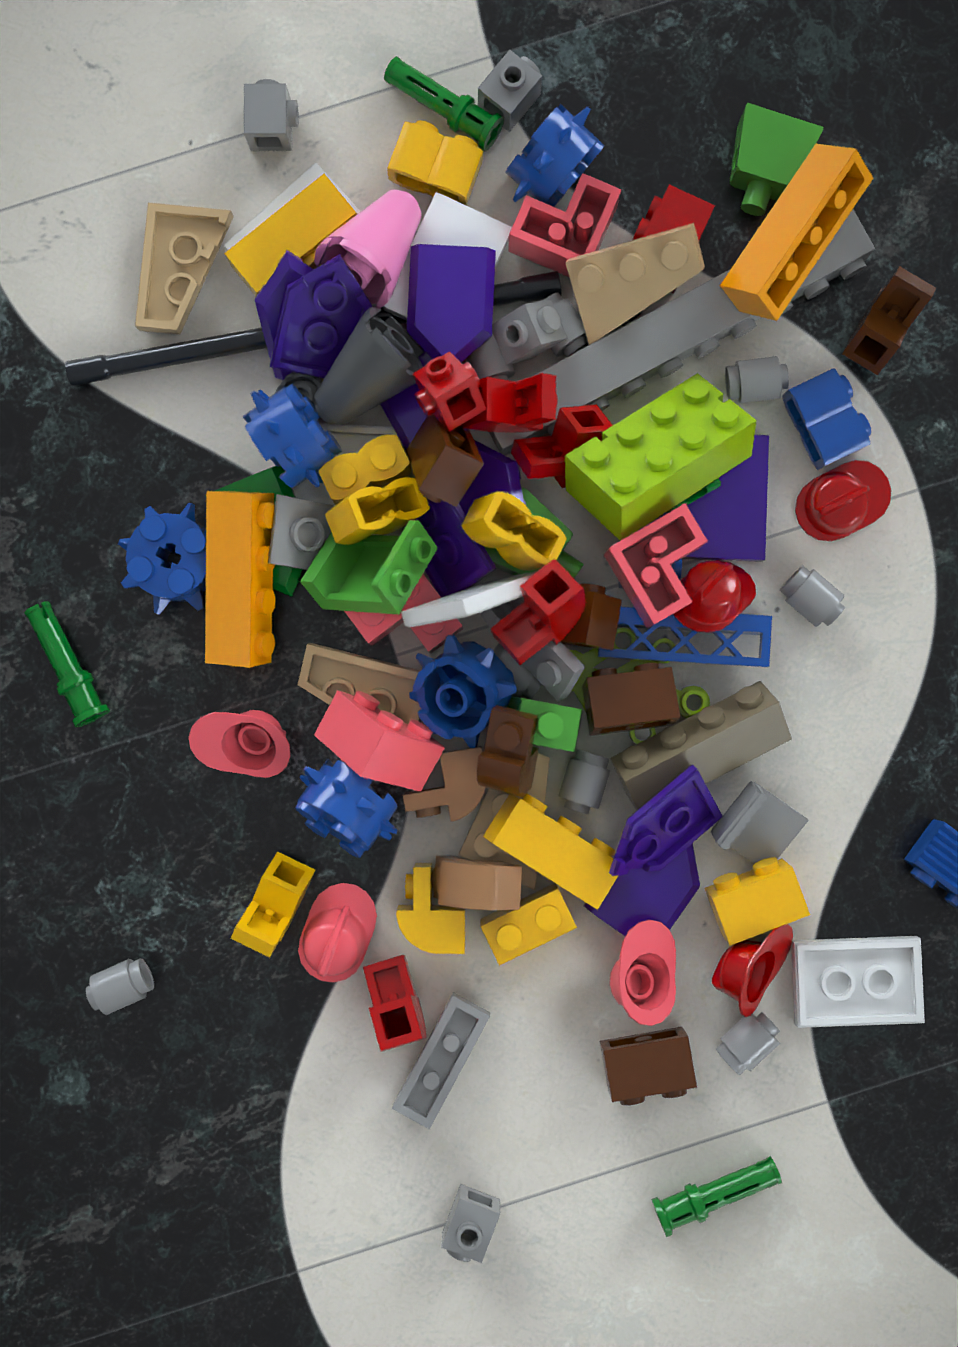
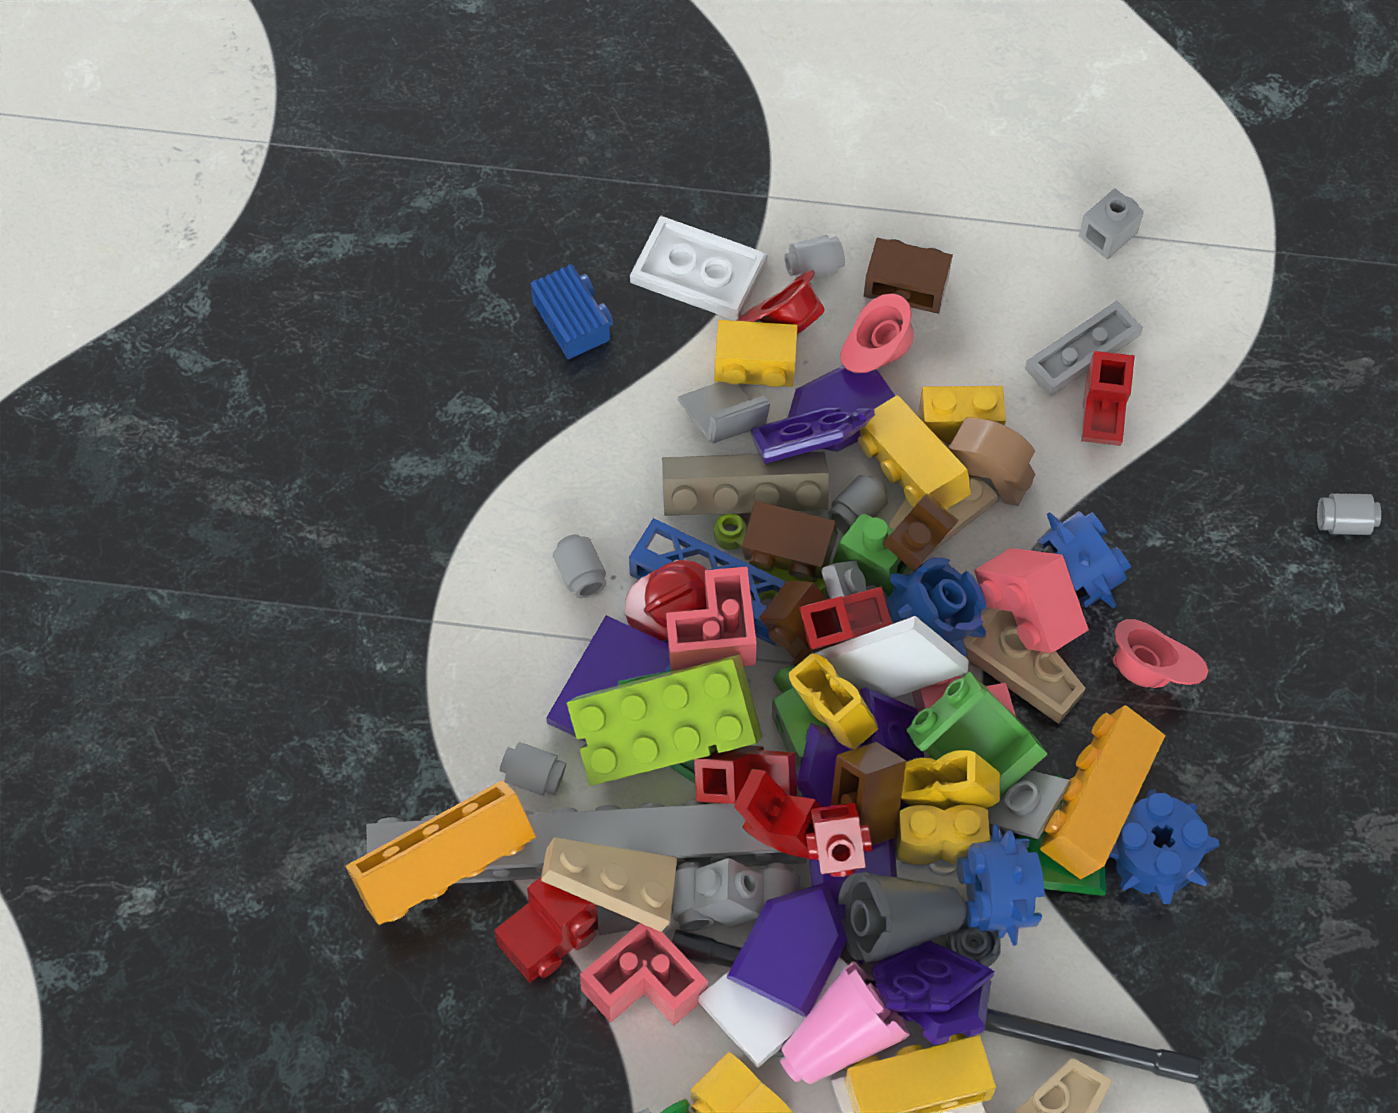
camera: 160 degrees left, 25 degrees down
(73, 681) = (1298, 782): green pin -> none
(273, 904) = (1184, 518): yellow brick -> none
(337, 932) = (1133, 482): coral piece -> none
(429, 926) = (1053, 456): yellow brick -> none
(460, 789) = (976, 540): medium nougat brick -> none
(554, 157) = (626, 1043): blue brick -> none
(697, 1202) = (914, 167): green pin -> none
(768, 154) = (412, 963): bright green torso -> none
(826, 418) = (486, 706): blue brick -> none
(843, 500) = (505, 639): red piece -> none
(888, 320) = (391, 762): reddish brown brick -> none

